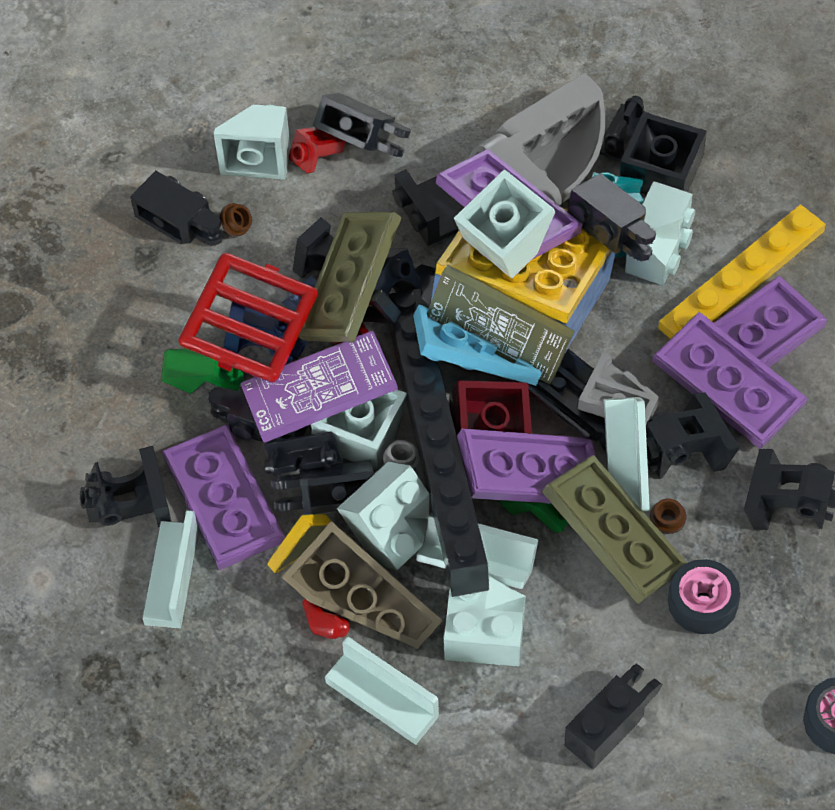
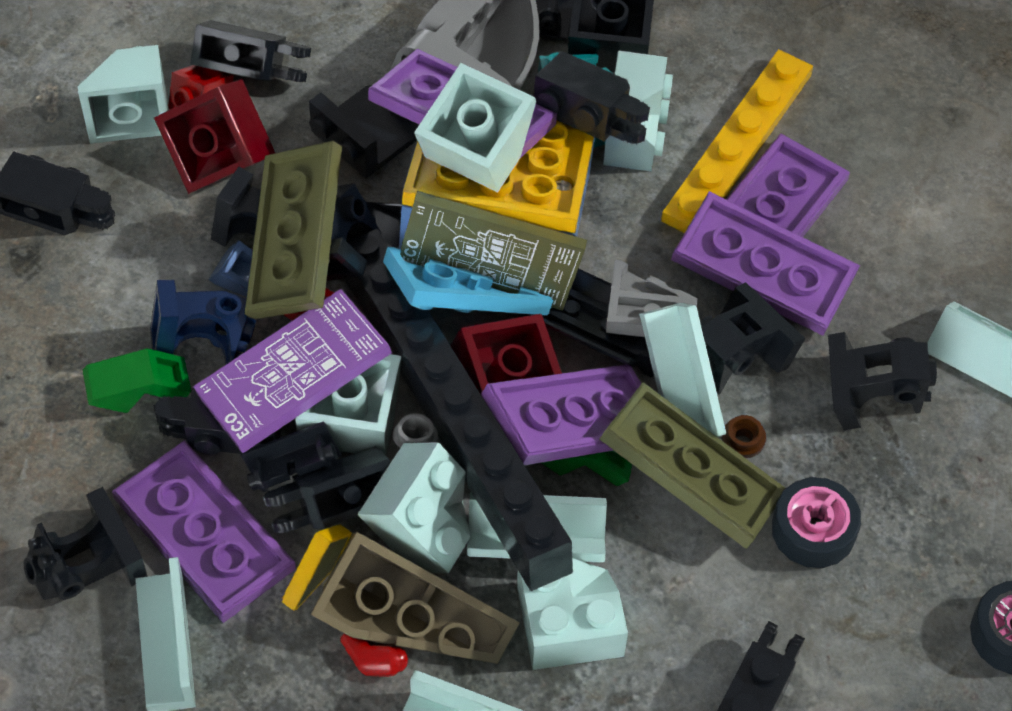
camera: 20 degrees left, 0 degrees up
(235, 219) = (126, 191): reddish brown plate -> none
(282, 346) = (175, 359): red bar -> none
(314, 187) = (214, 135): none -> dark red slope

